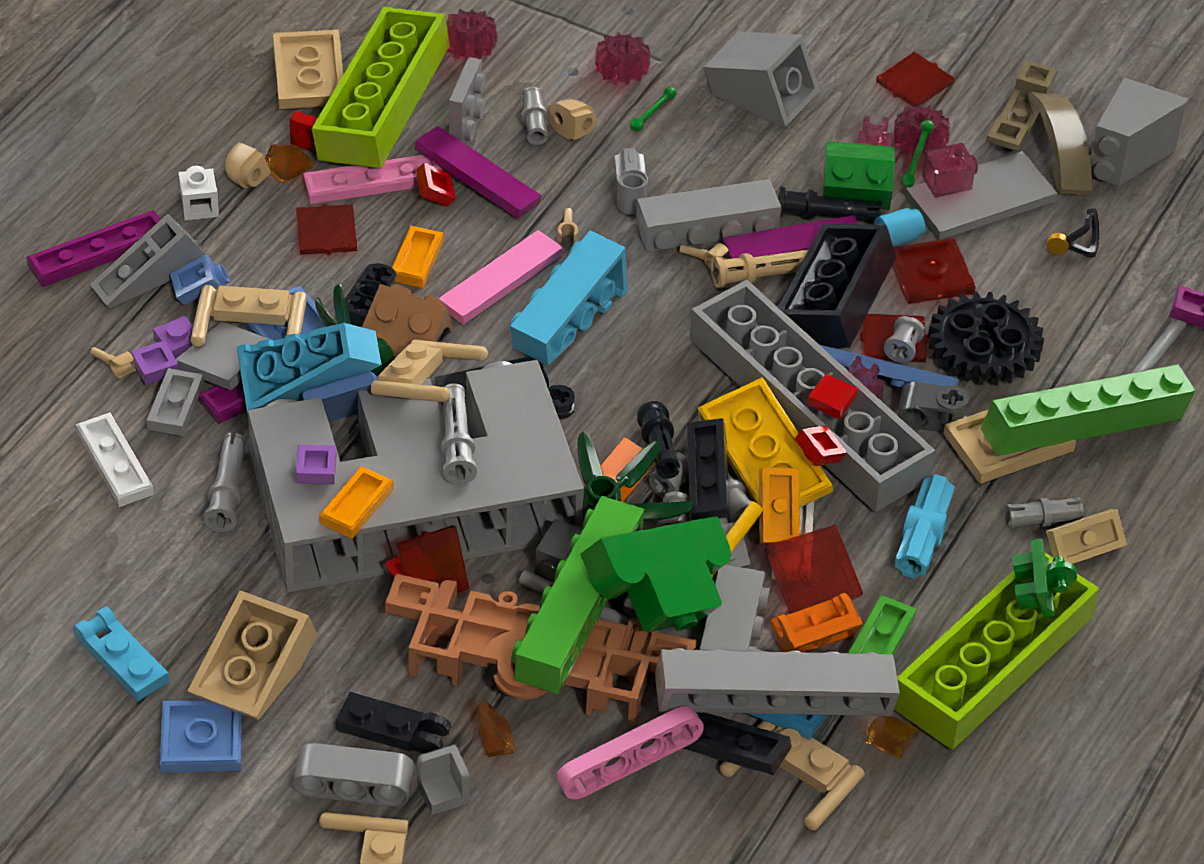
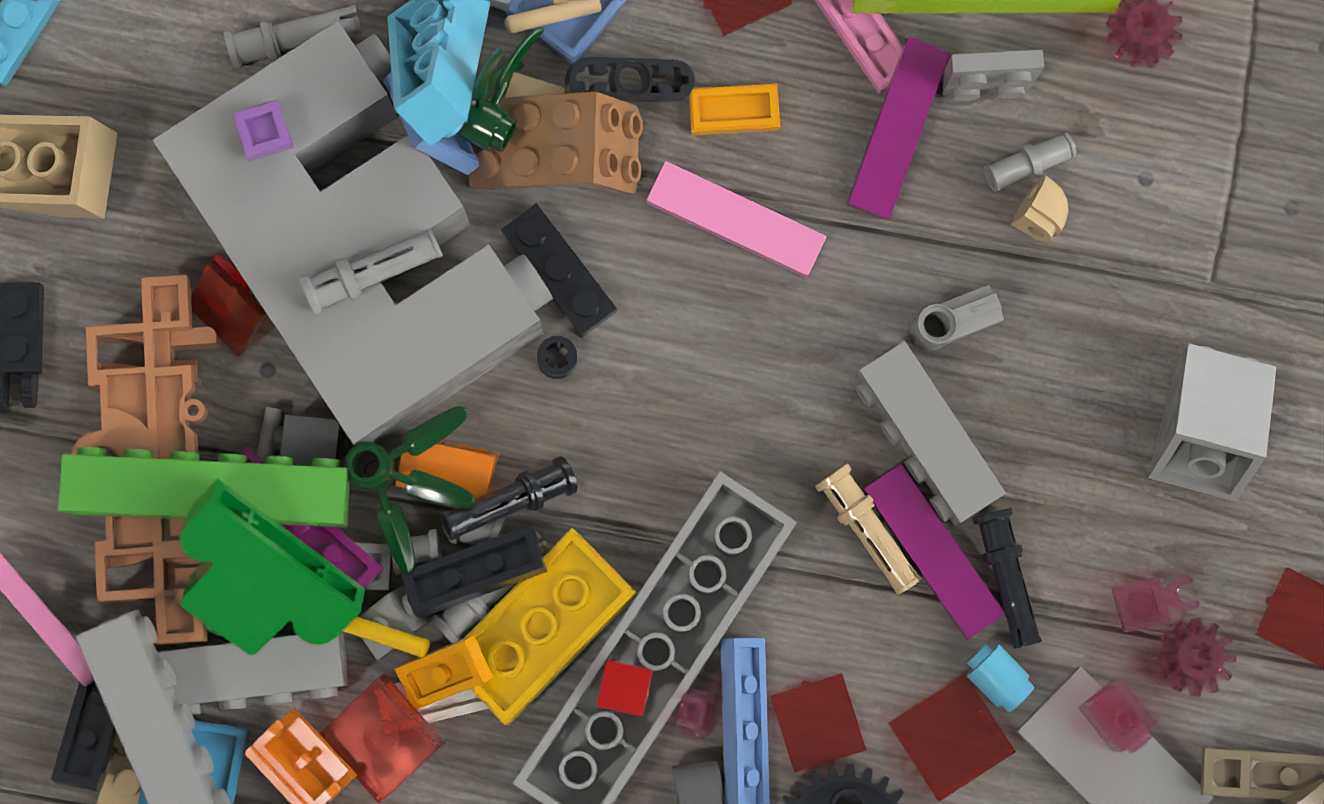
camera: 70 degrees right, 35 degrees up
(356, 502) = (232, 196): light orange tile -> none
(415, 364) = (470, 181): tan plate -> none
(435, 184) = (853, 87): red plate -> none
(495, 732) = (37, 457): clear orange slope -> none
(567, 227) = (853, 268): tan hand -> none
(571, 298) = (695, 316): medium azure wedge -> none
(622, 58) = (1188, 220): clear pink gear -> none
(636, 124) = (1076, 290): green hinge -> none
(717, 251) = (869, 465): tan hand -> none
(820, 445) = (541, 696): red plate -> none
(839, 281) = (861, 629): black slope -> none
(859, 172) = (1076, 599): green slope -> none
(904, 339) = (797, 740): light grey bush -> none
(908, 178) = (1108, 663): green hinge -> none

